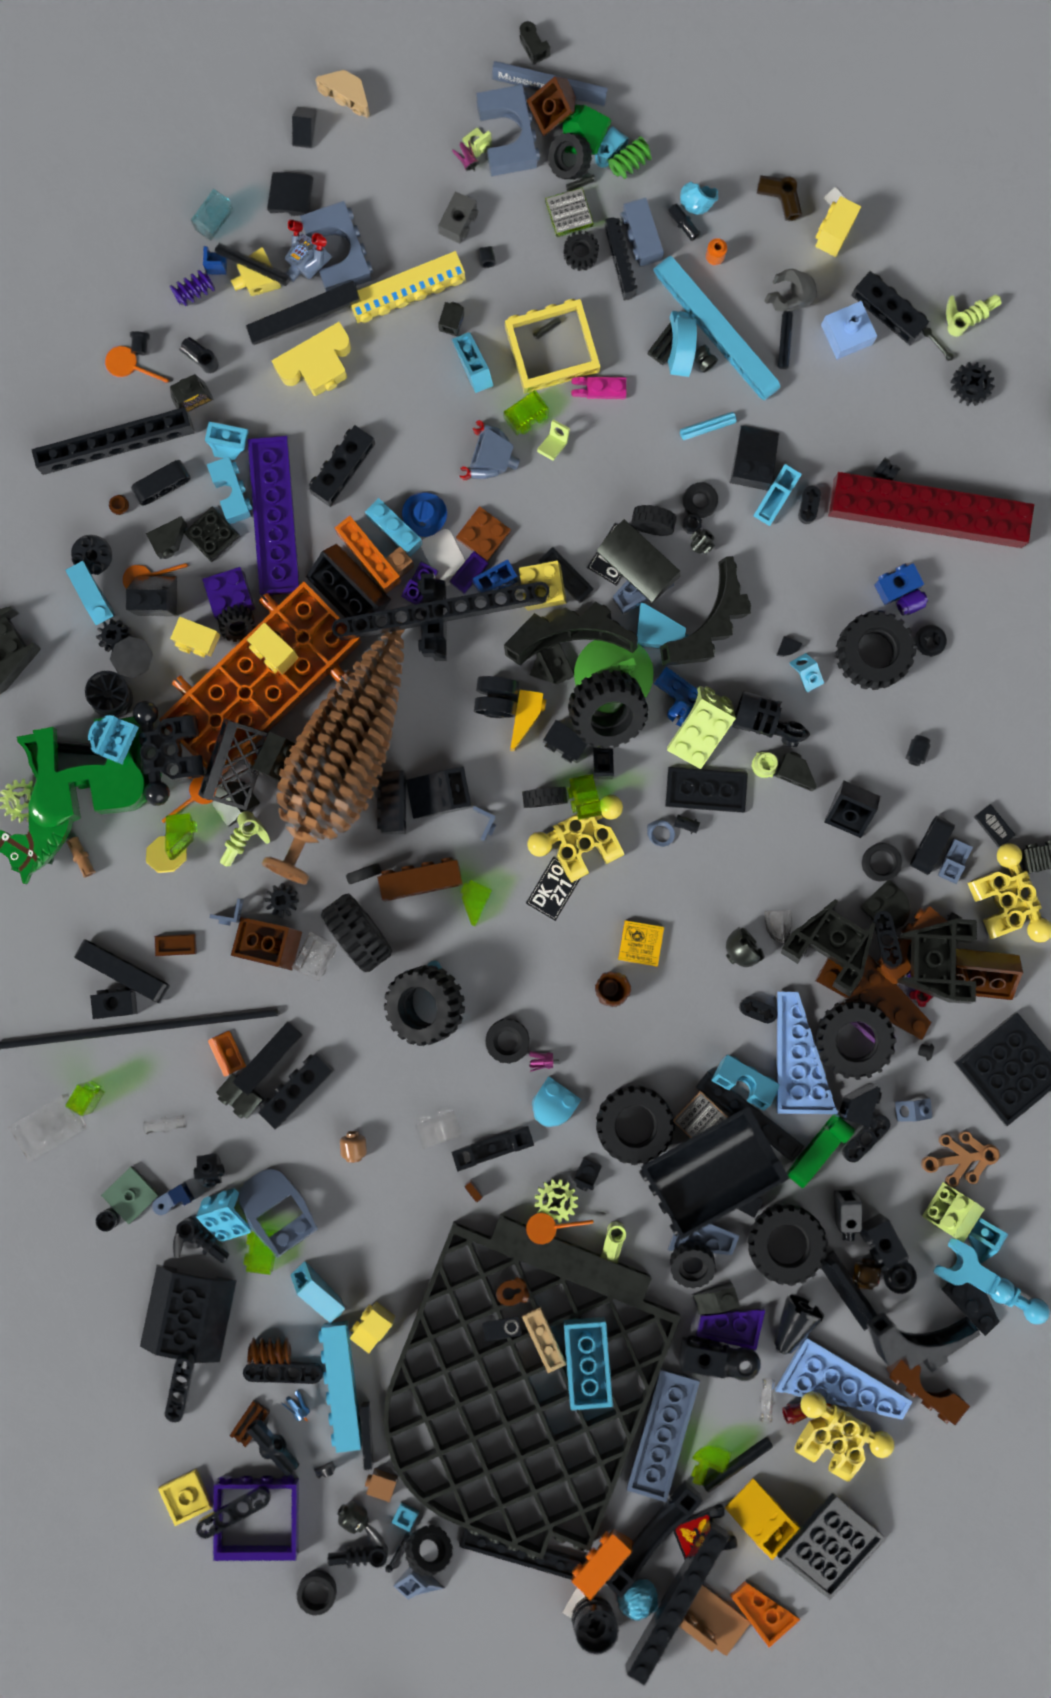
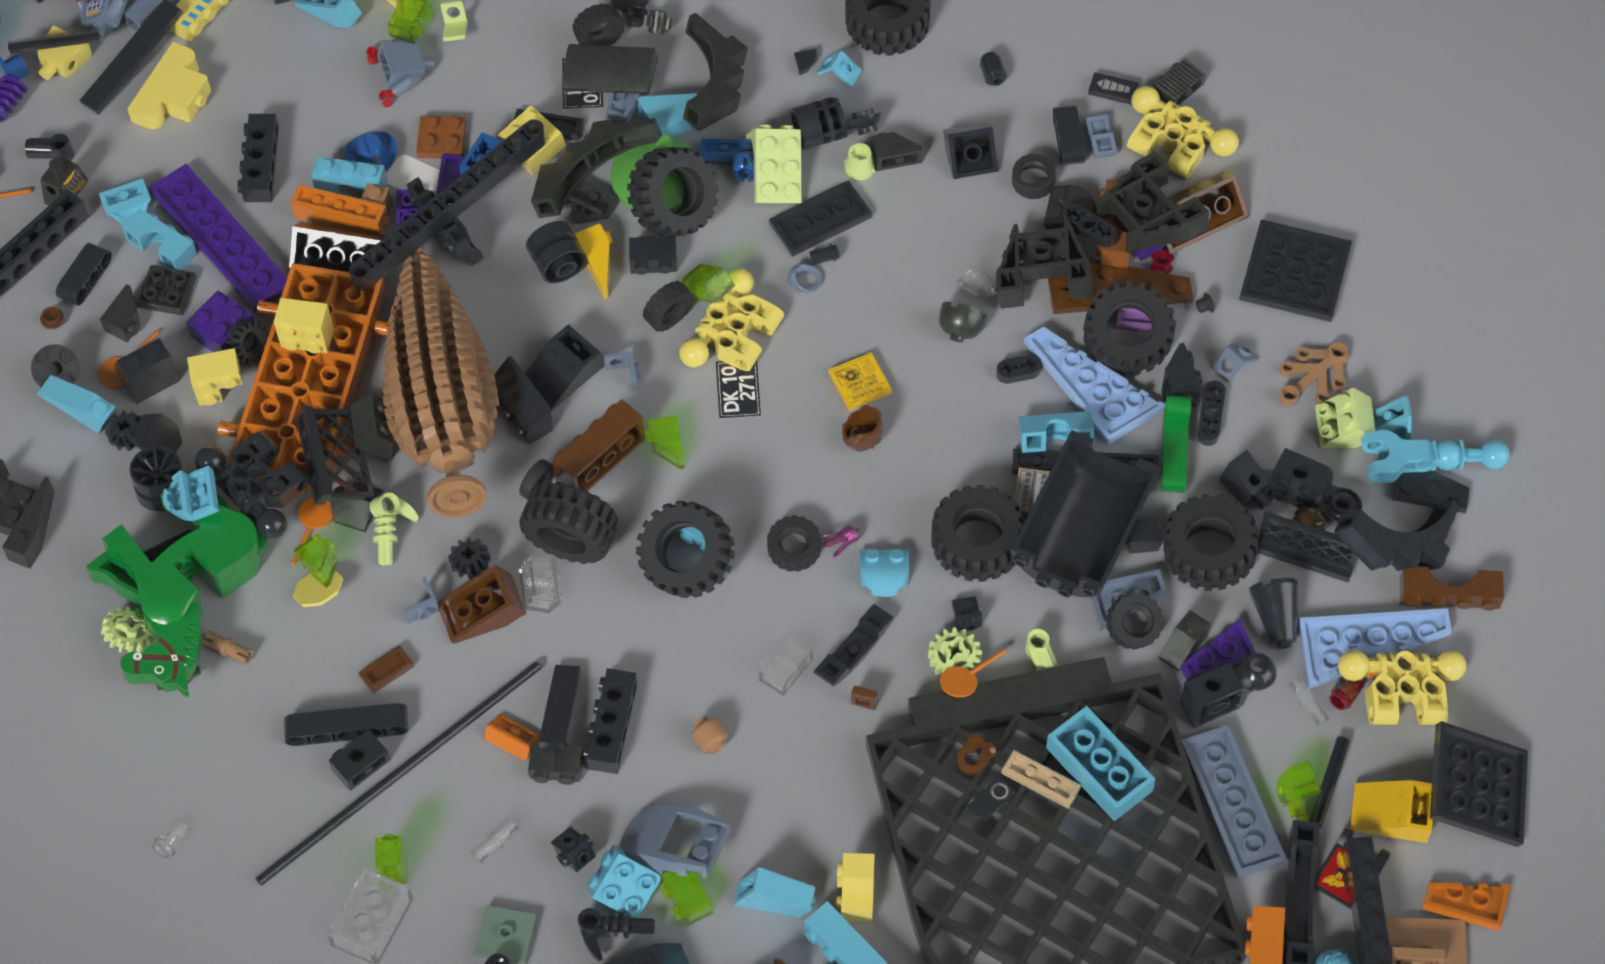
camera: 30 degrees left, 25 degrees down
(166, 1202) = (553, 906): leg -> none
(603, 763) = (705, 252): black slope -> none

